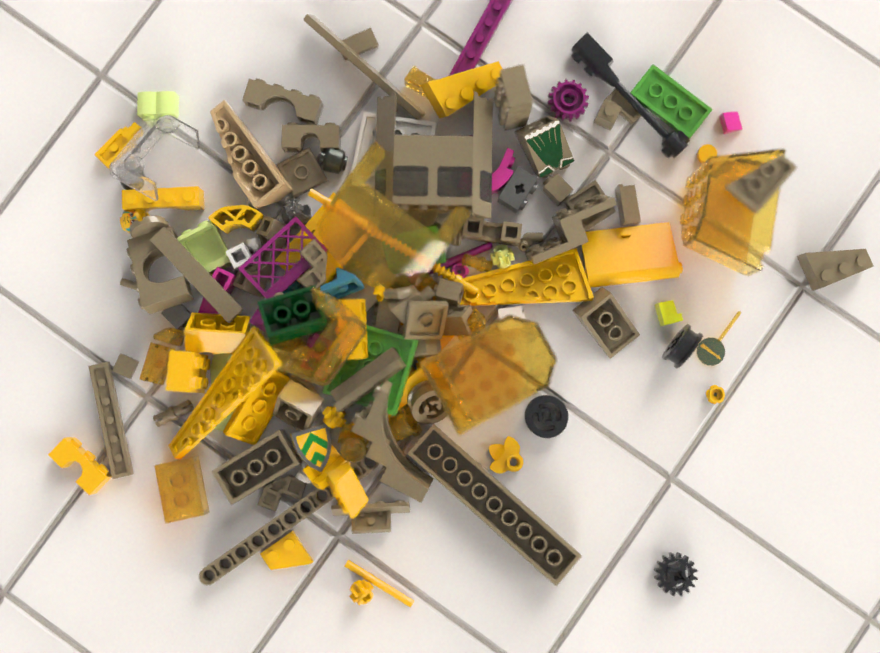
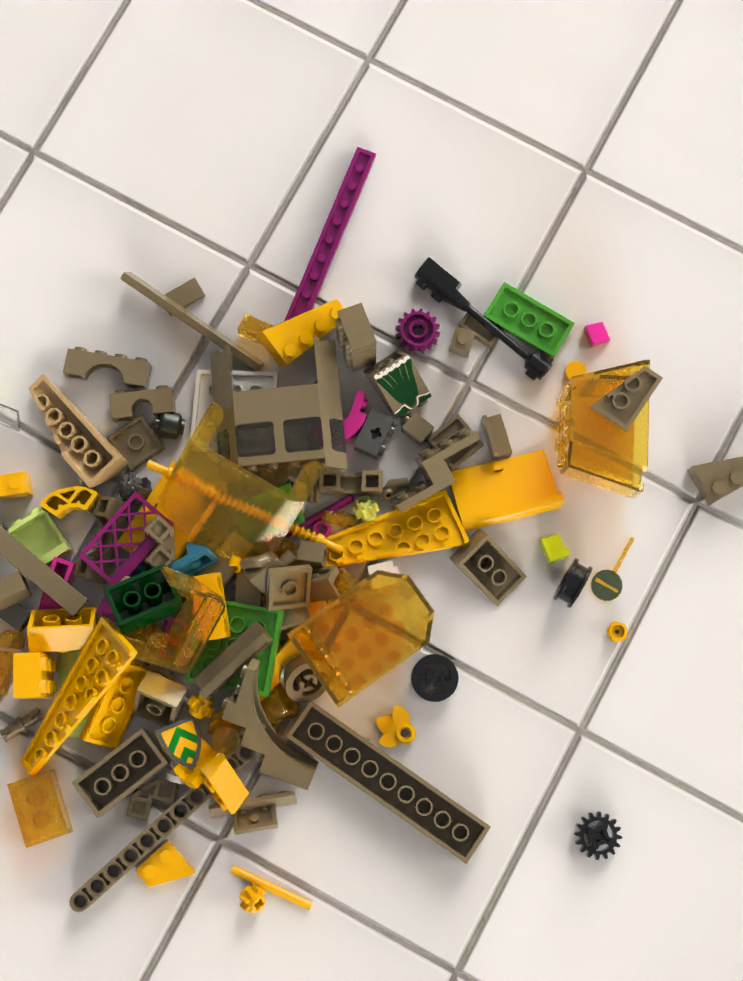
camera: 10 degrees left, 5 degrees down
(239, 255) = (77, 541): white brick -> none
(254, 244) = (92, 527): white hinge -> none

